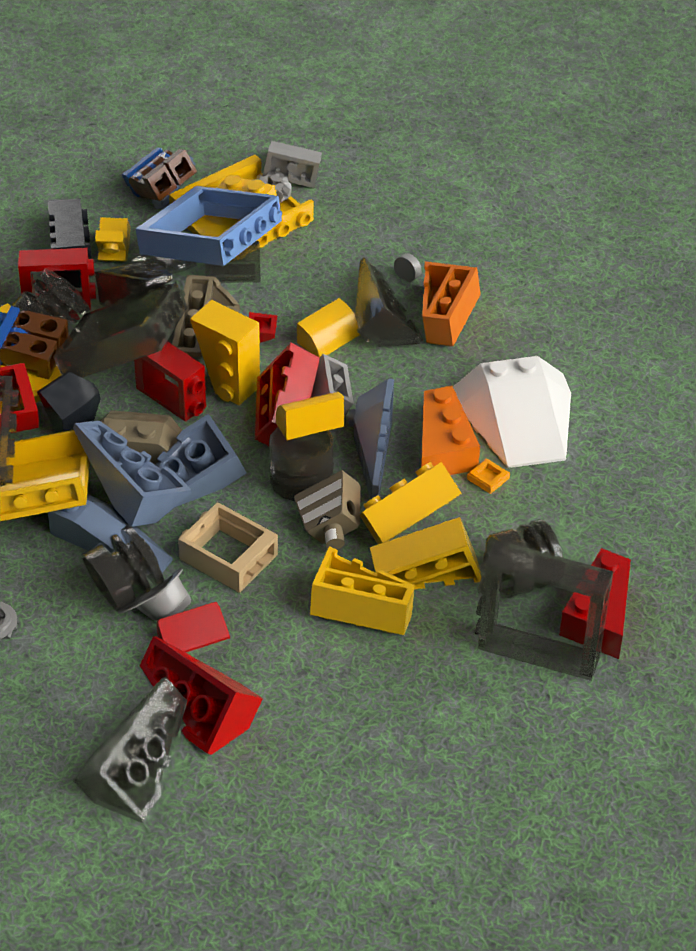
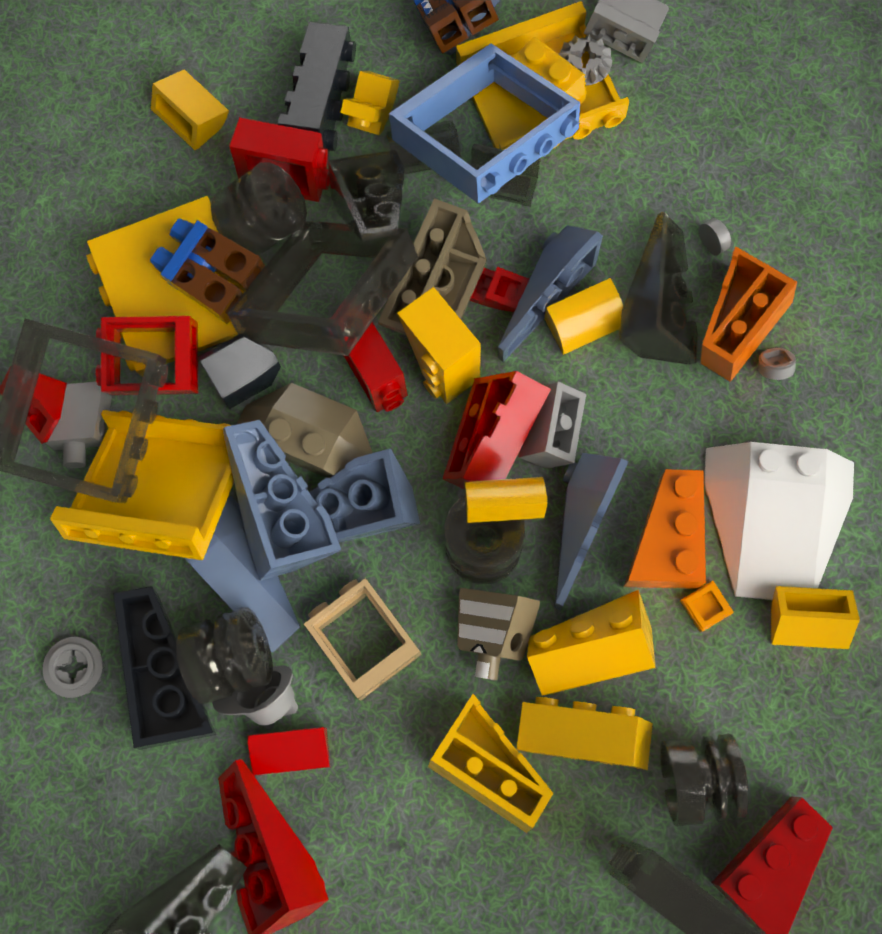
camera: 25 degrees right, 30 degrees up
(68, 602) = (157, 696): none -> black wedge
(297, 301) = (560, 268): none -> sand blue wedge
(483, 329) = (776, 363): none -> light grey tile
(569, 461) = (813, 617): none -> yellow brick

